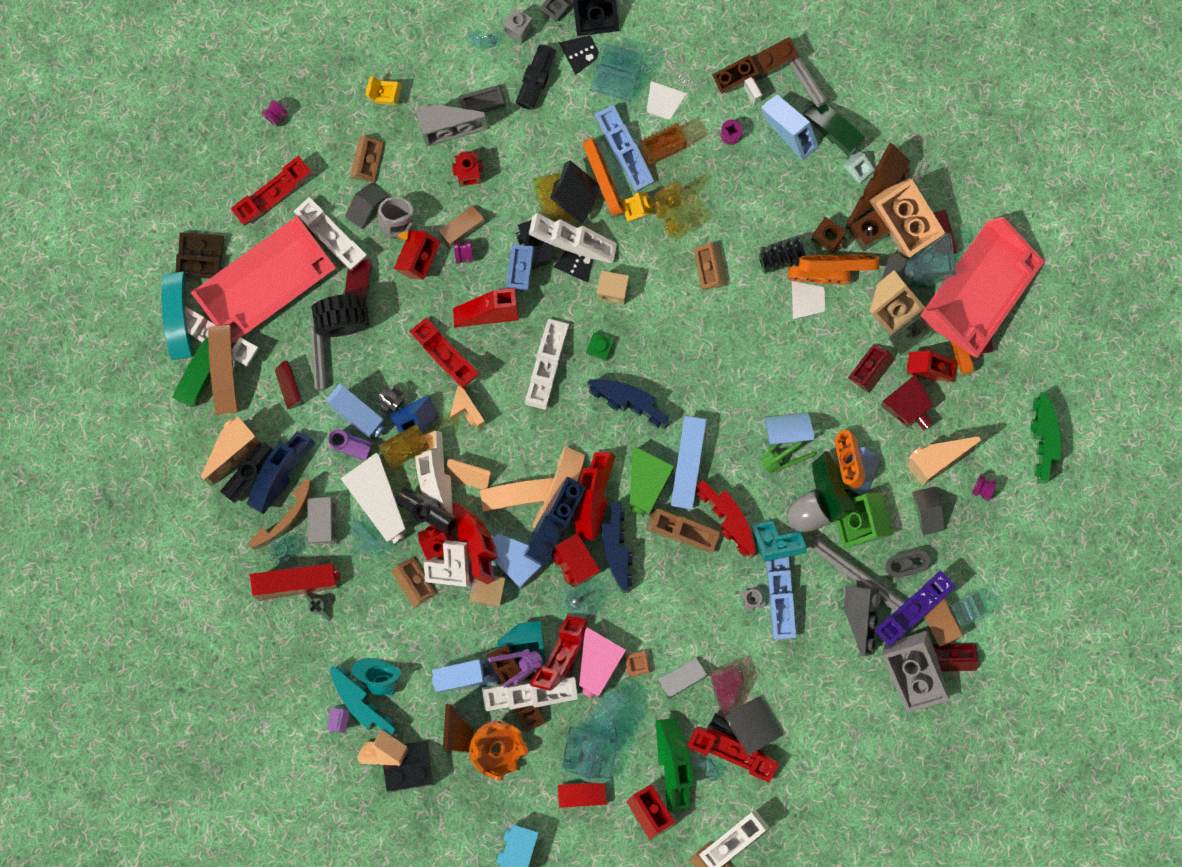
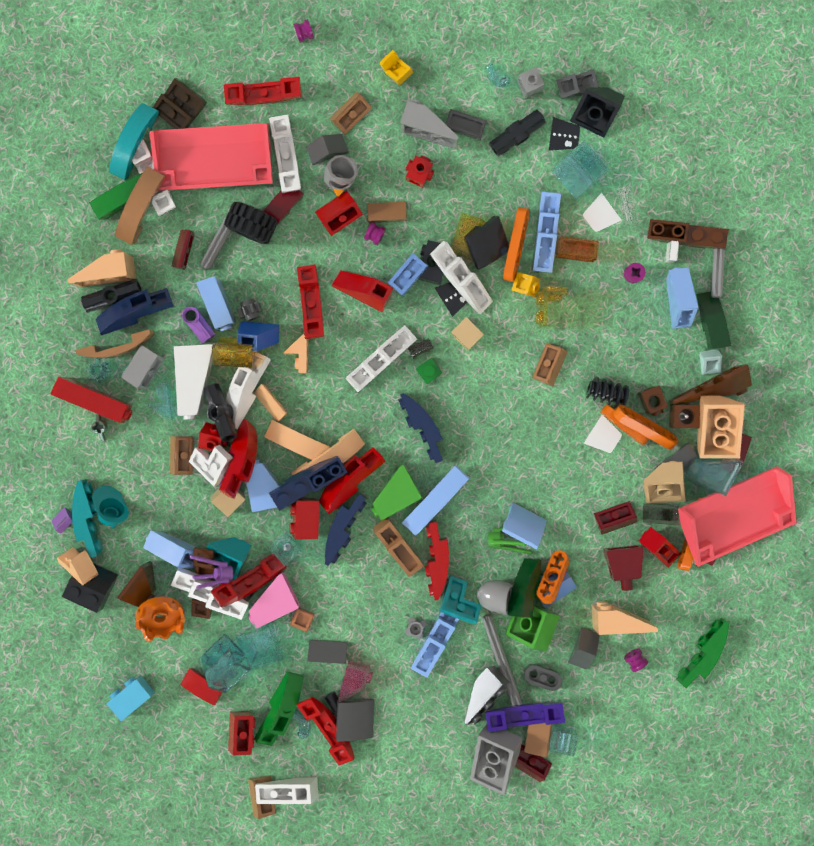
camera: 25 degrees right, 10 degrees up
(578, 329) = (420, 348): none -> clear smoke pin

